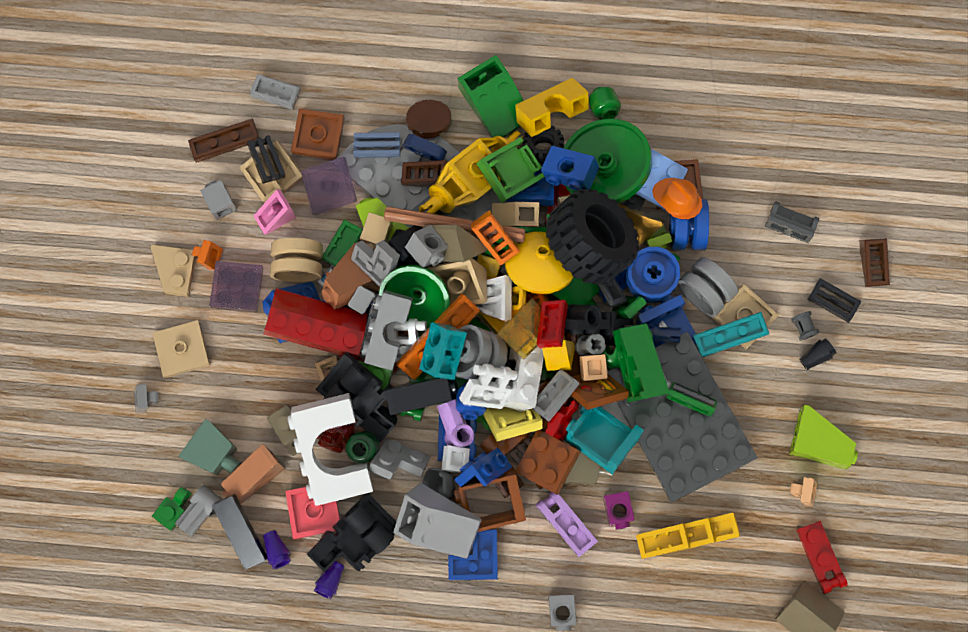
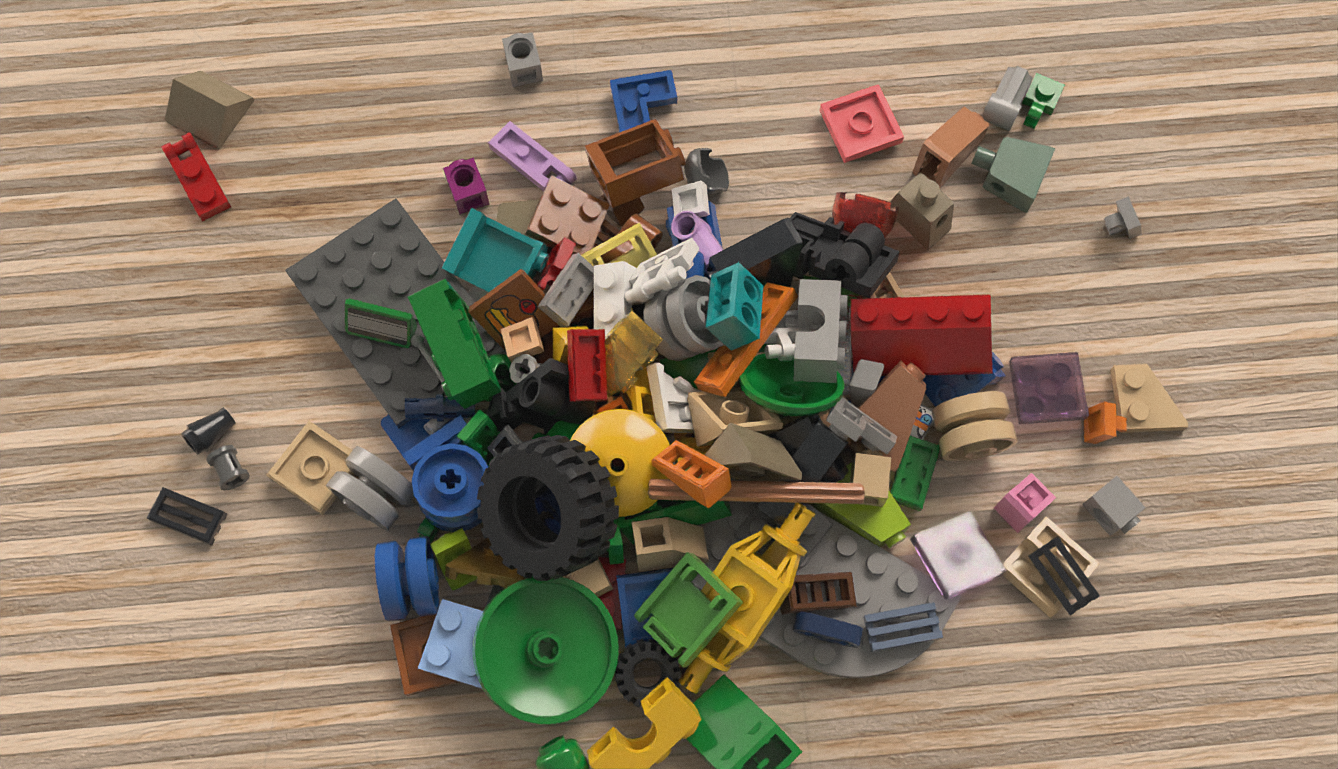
camera: 165 degrees right, 5 degrees down
(181, 349) = (1096, 294): tan plate -> none
(223, 140) = (1135, 605): reddish brown tile -> none
(239, 531) = (948, 79): tile -> none
(275, 91) = (1082, 695): light grey plate -> none
(276, 550) = (896, 71): dark purple cone -> none
(317, 134) = (997, 636): dark orange plate -> none
(327, 483) = (856, 141): white arch -> none
(329, 581) = (820, 47): dark purple cone -> none
(357, 452) = (816, 195): dark green head -> none
(358, 536) = (798, 97): black plate -> none
(394, 456) = (766, 202): light grey plate -> none
(427, 247) = (804, 439): light grey brick -> none
(428, 118) = (833, 689): reddish brown tile -> none
(436, 522) = (701, 119): light grey slope -> none
(485, 468) = (649, 187): blue bracket -> none
(560, 160) = (577, 625): blue brick -> none
(678, 197) = (427, 602): orange piece -> none
(688, 535) = (369, 173): yellow slope -> none
(731, 334) = (333, 431): teal tile -> none
(791, 223) = (252, 622): dark grey hinge -> none
(806, 491) = (219, 247): light nougat tile -> none
(821, 441) = (201, 312): lime slope -> none
(883, 262) = (134, 604): reddish brown slope -> none

